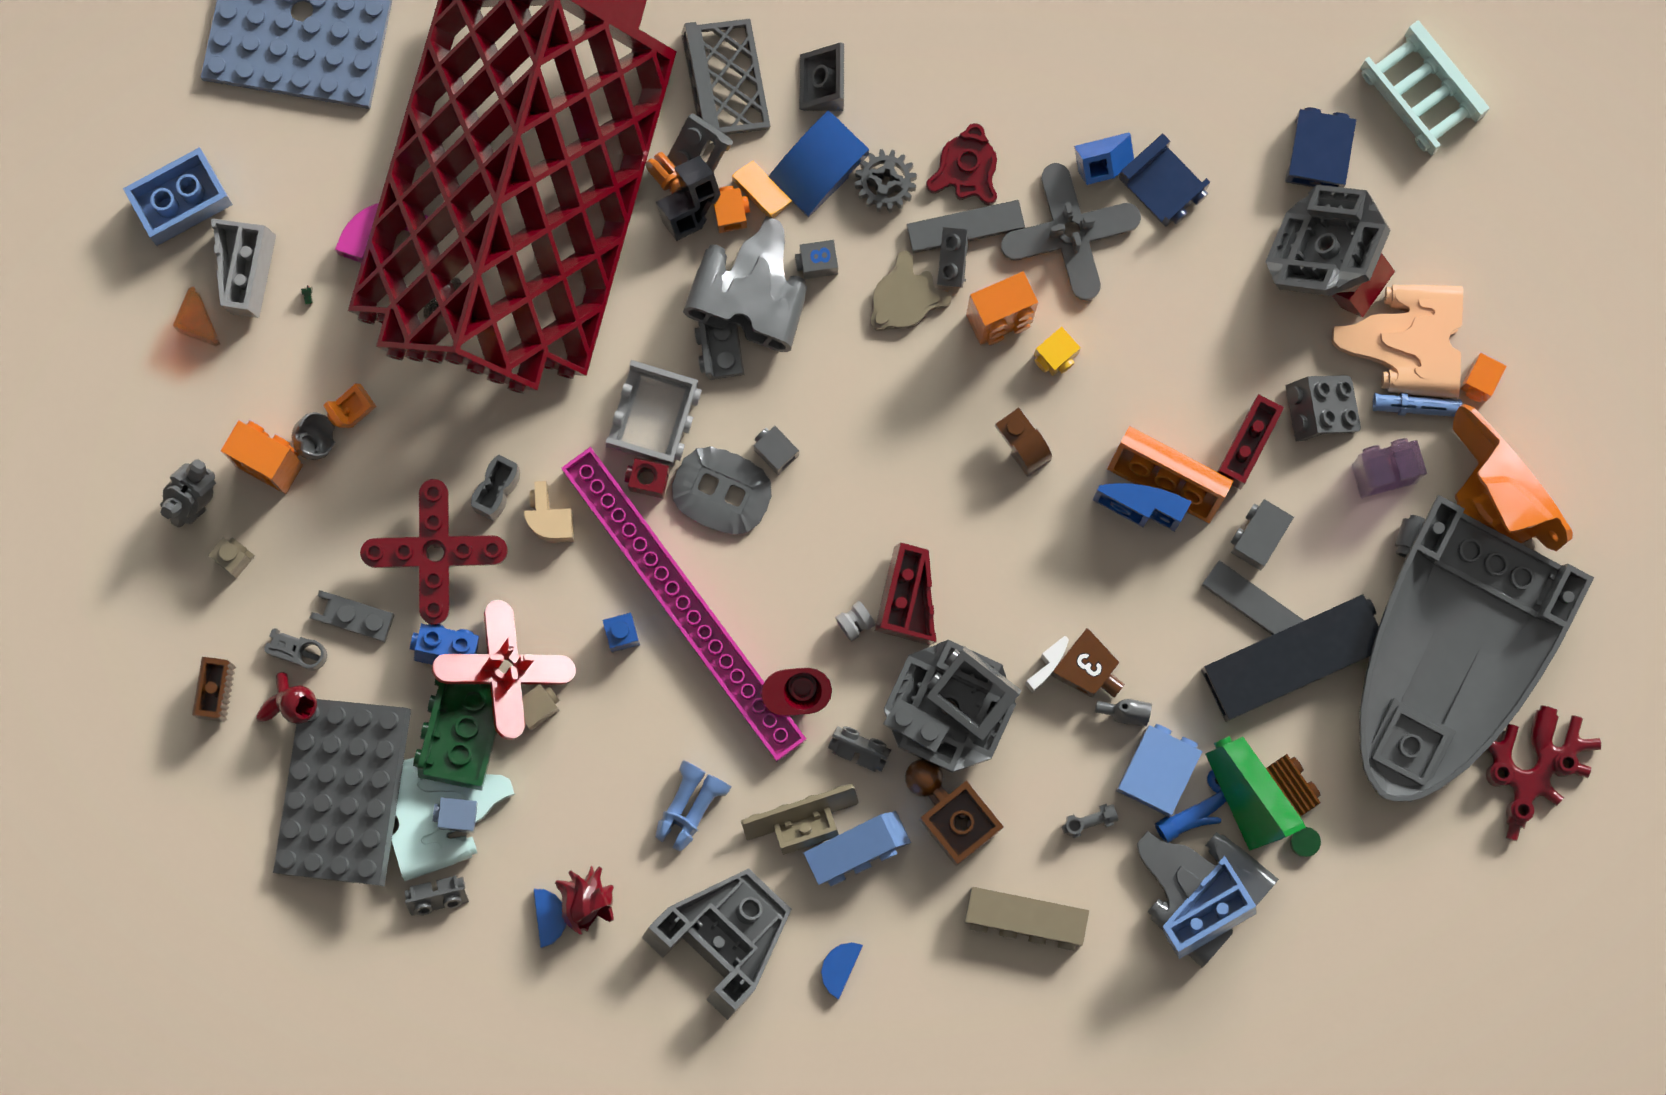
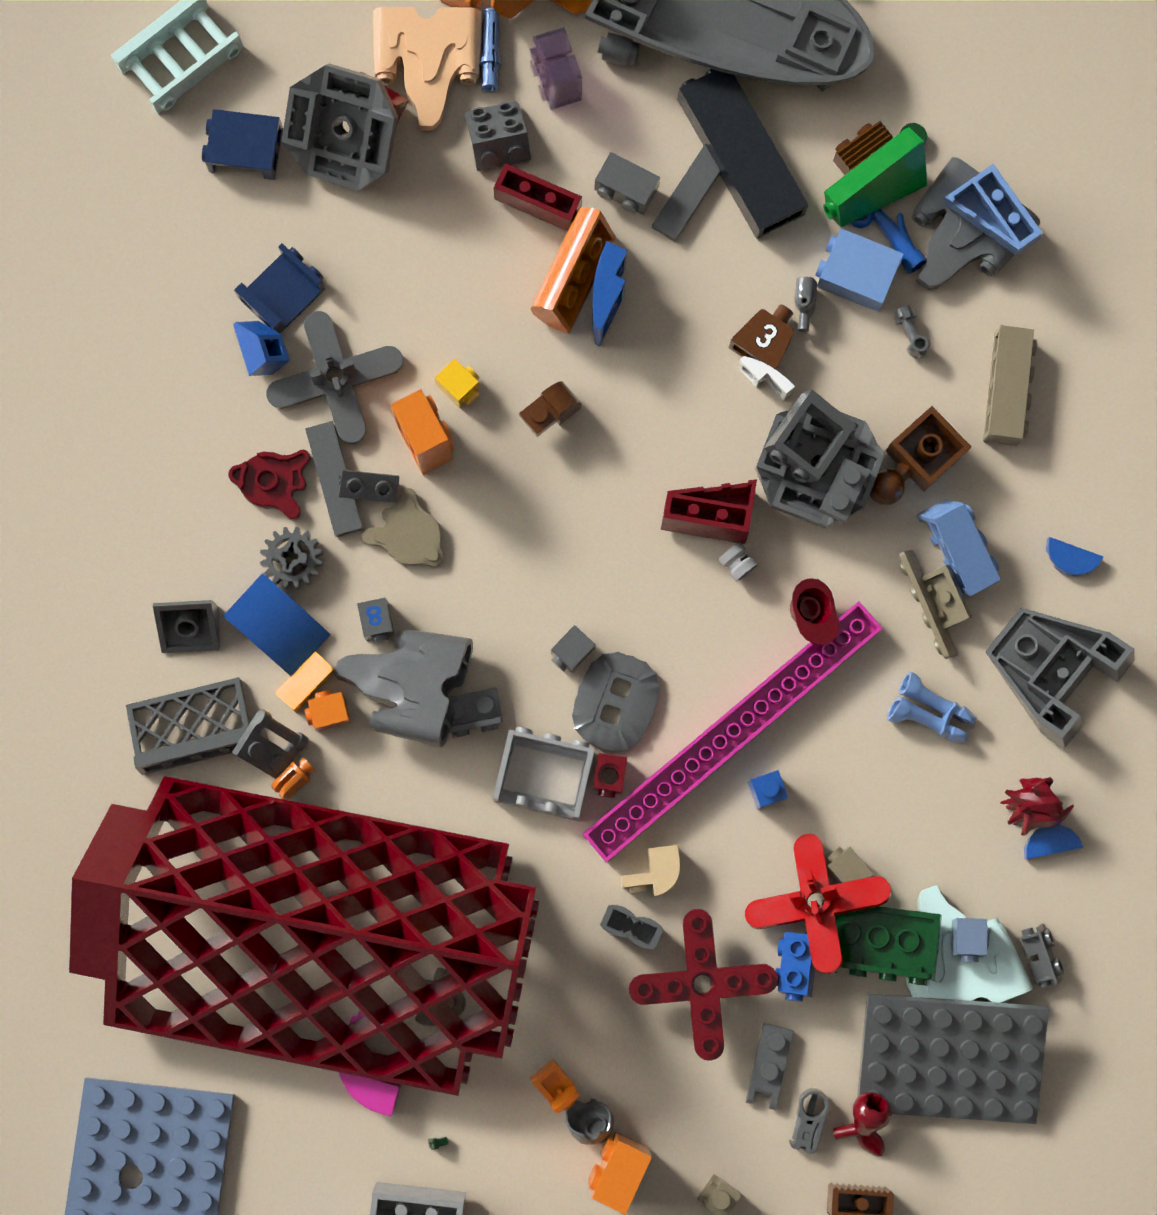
camera: 95 degrees left, 0 degrees up
(686, 209) = (330, 753): black brick -> none
(870, 750) = (855, 562): dark grey hinge -> none

